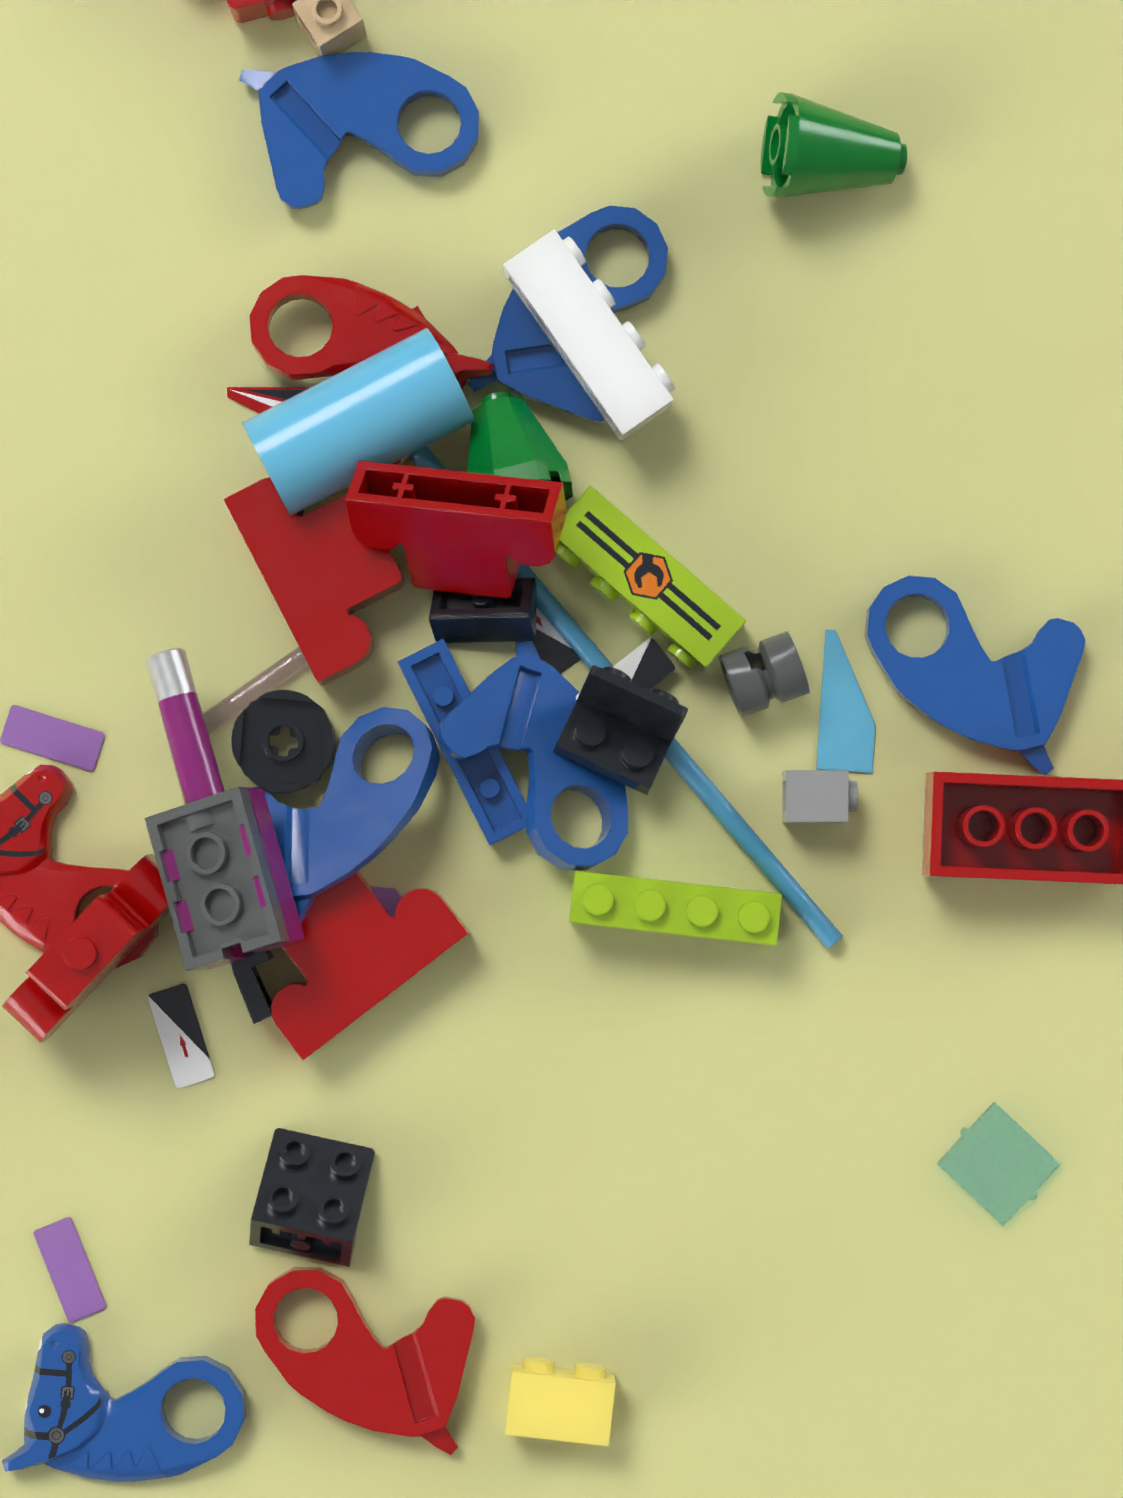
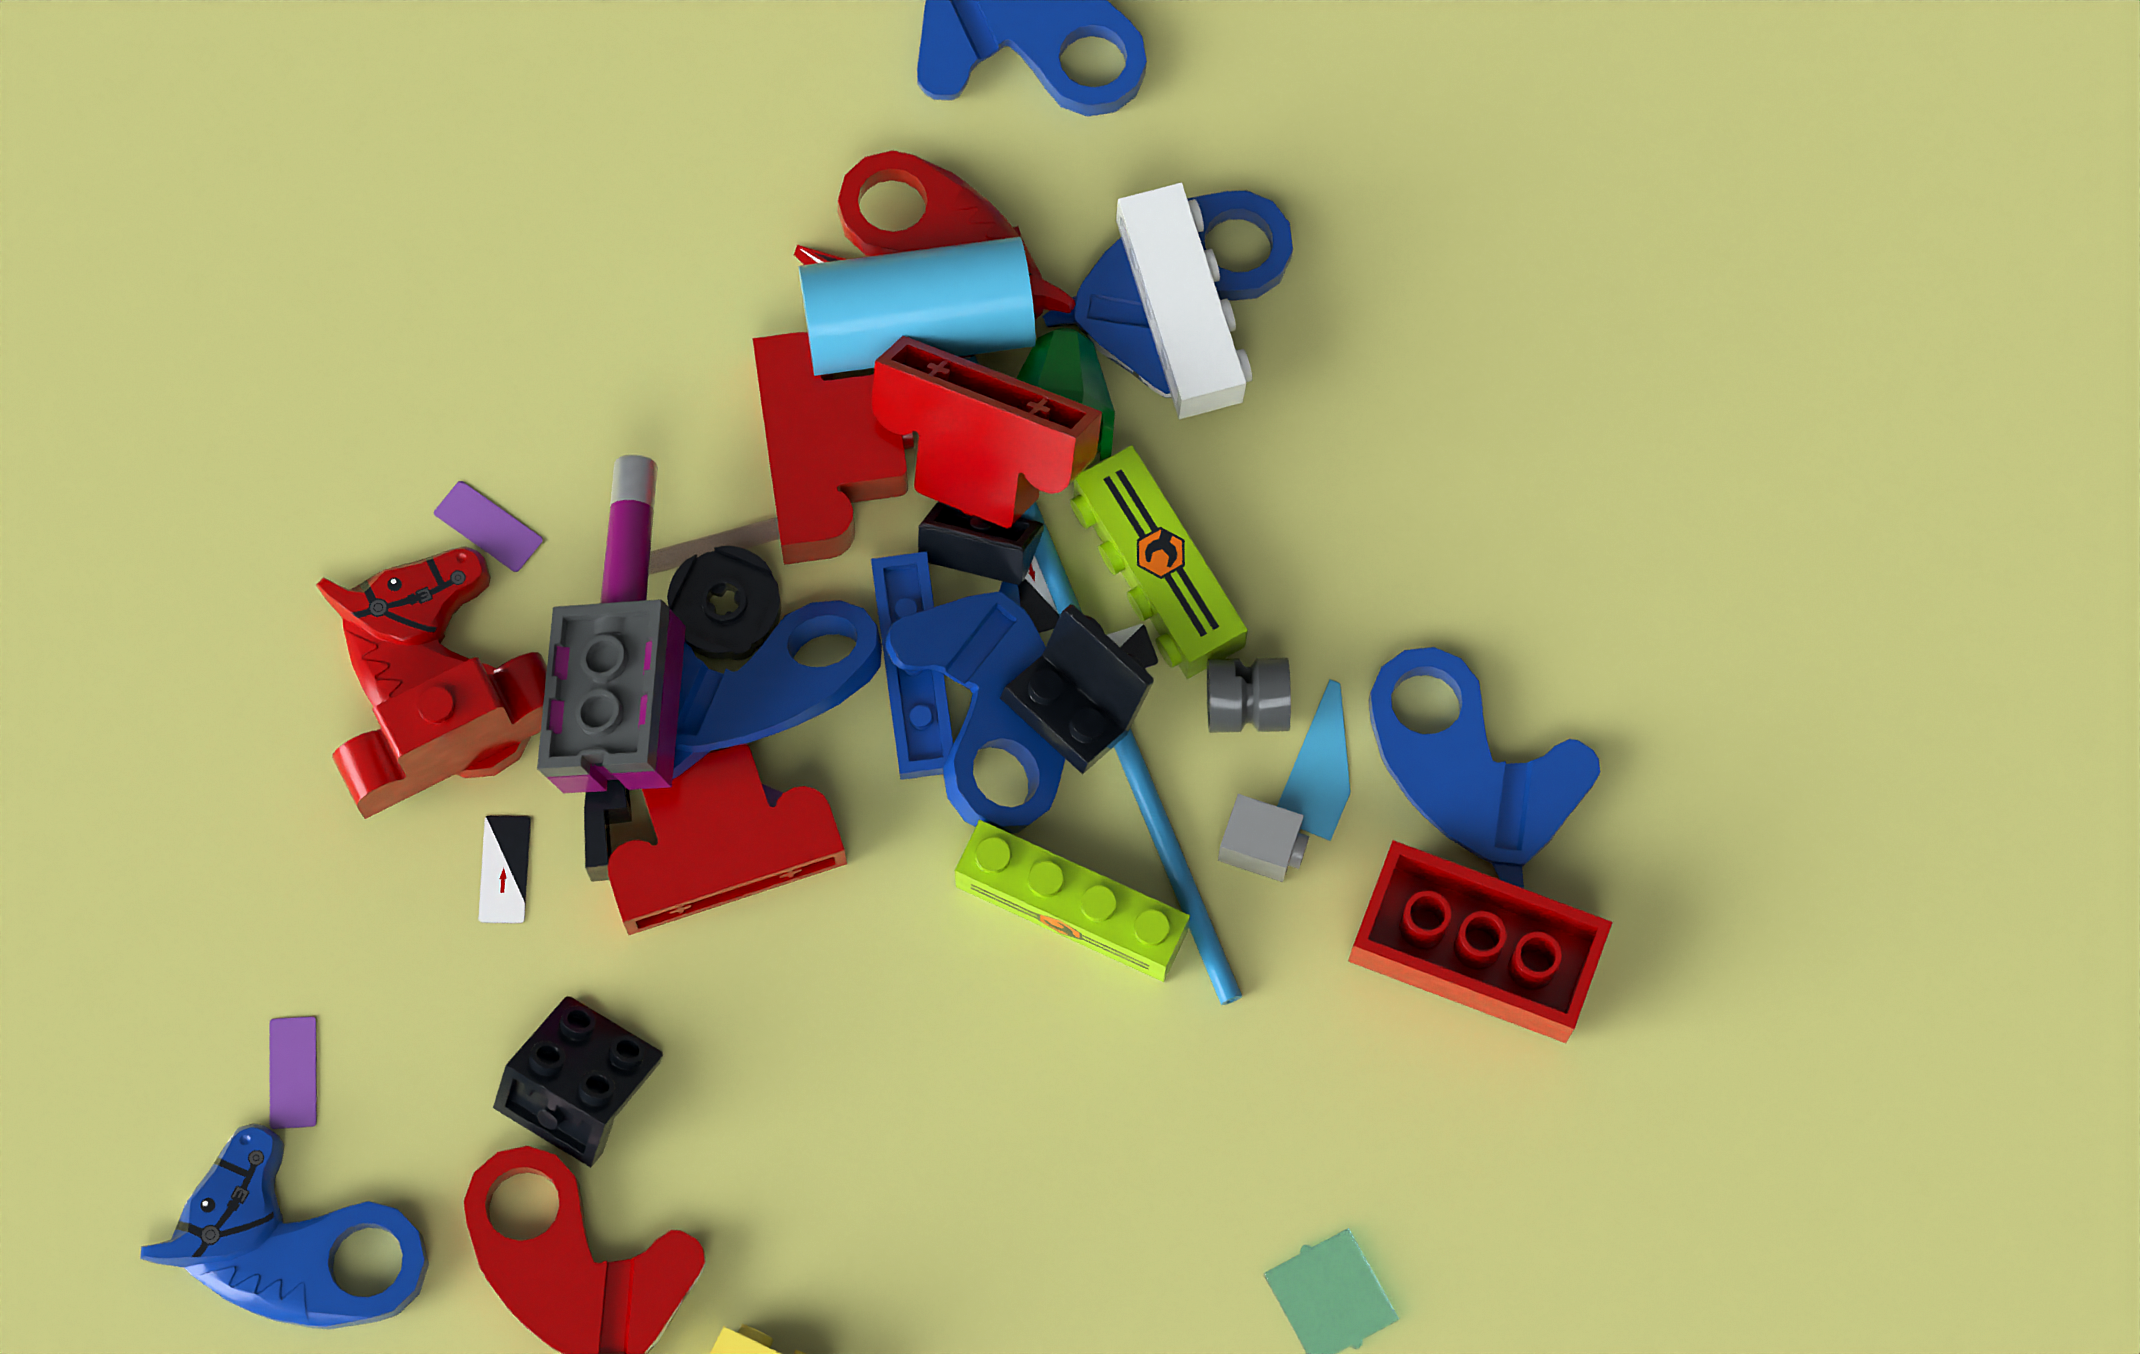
camera: 20 degrees right, 15 degrees down
(825, 150) = (1487, 205): green cone -> none

